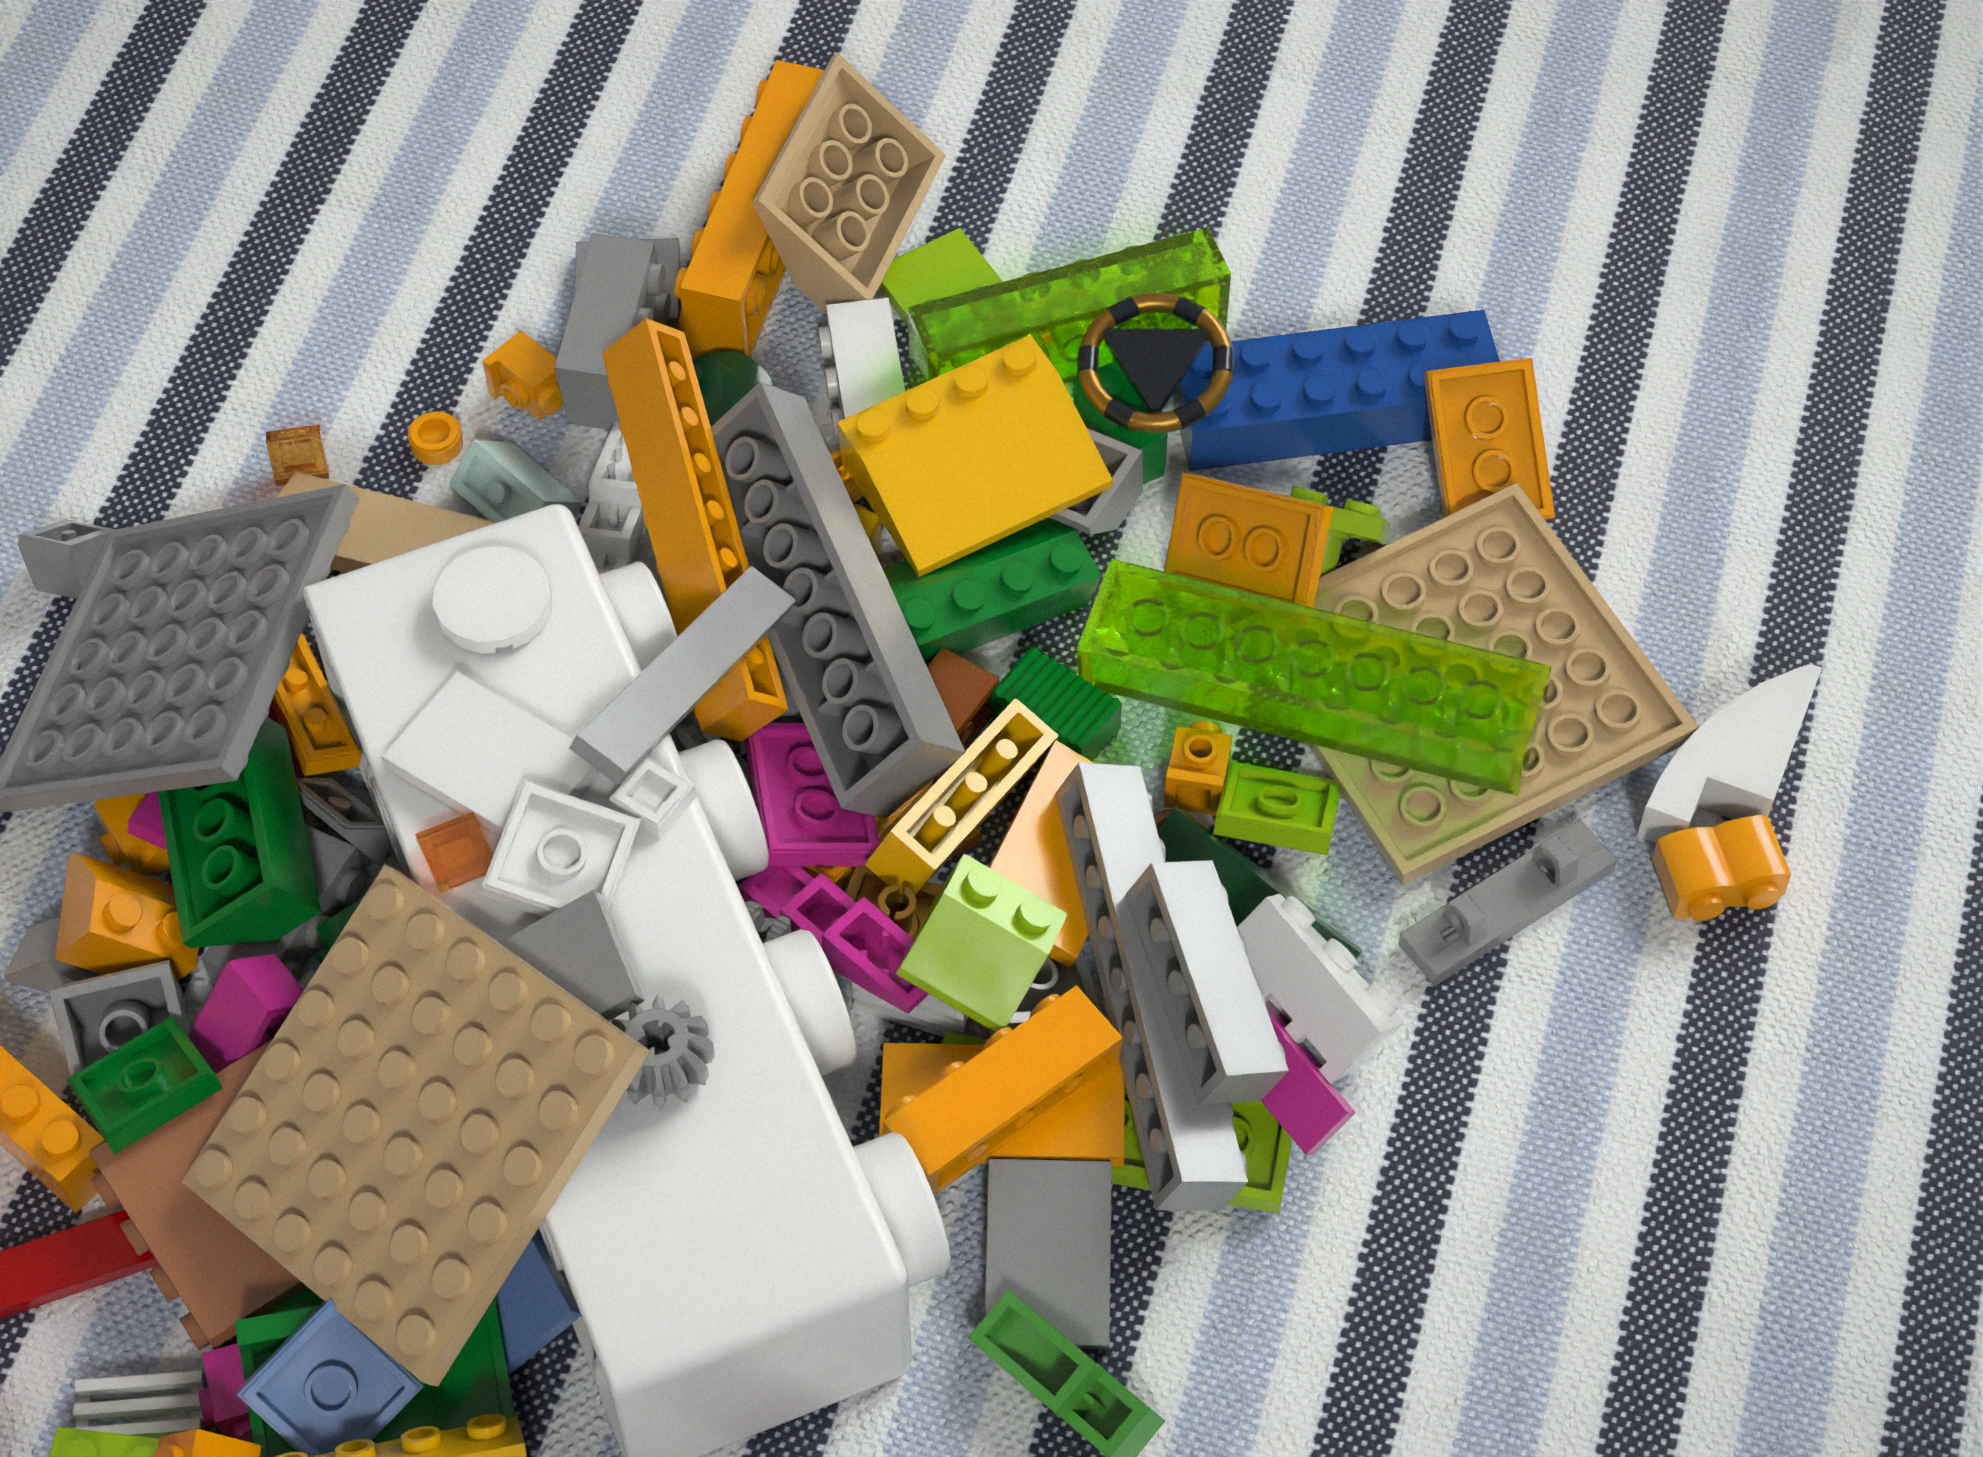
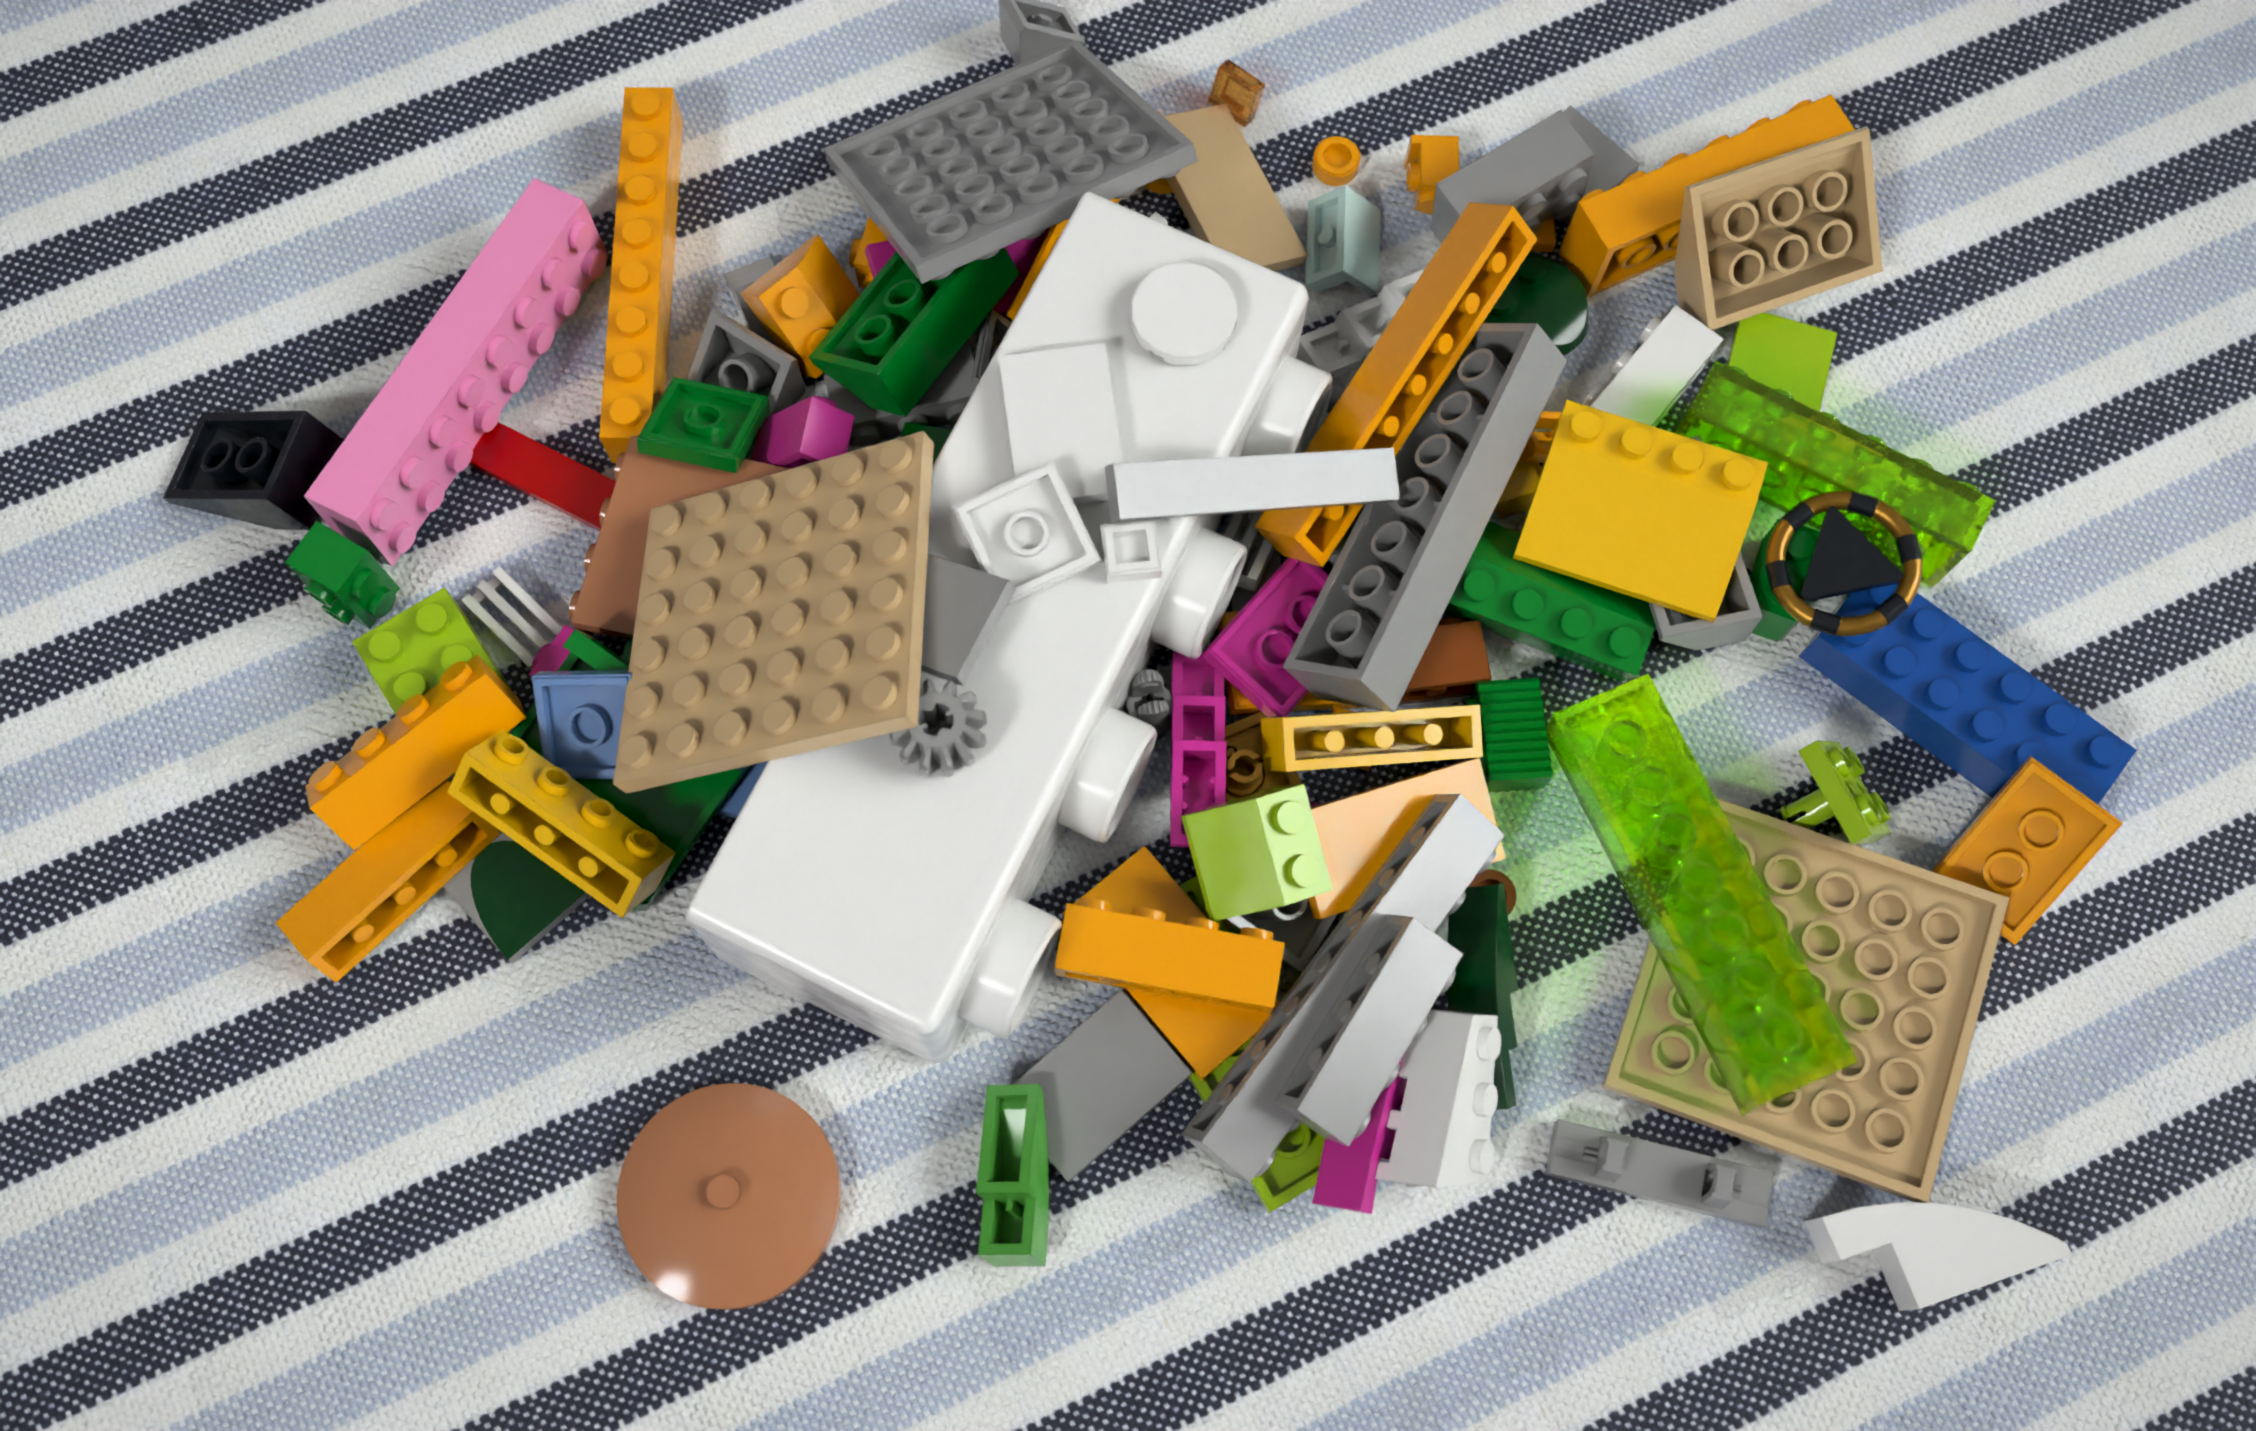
camera: 45 degrees right, 15 degrees up
(455, 852) = (973, 464): clear orange tile -> none
(1198, 768) = (1544, 879): light orange brick -> none
(1248, 539) = (1762, 753): light orange tile -> none
(1278, 808) = (1574, 952): lime tile -> none
(1721, 868) = (1831, 1310): light orange brick -> none

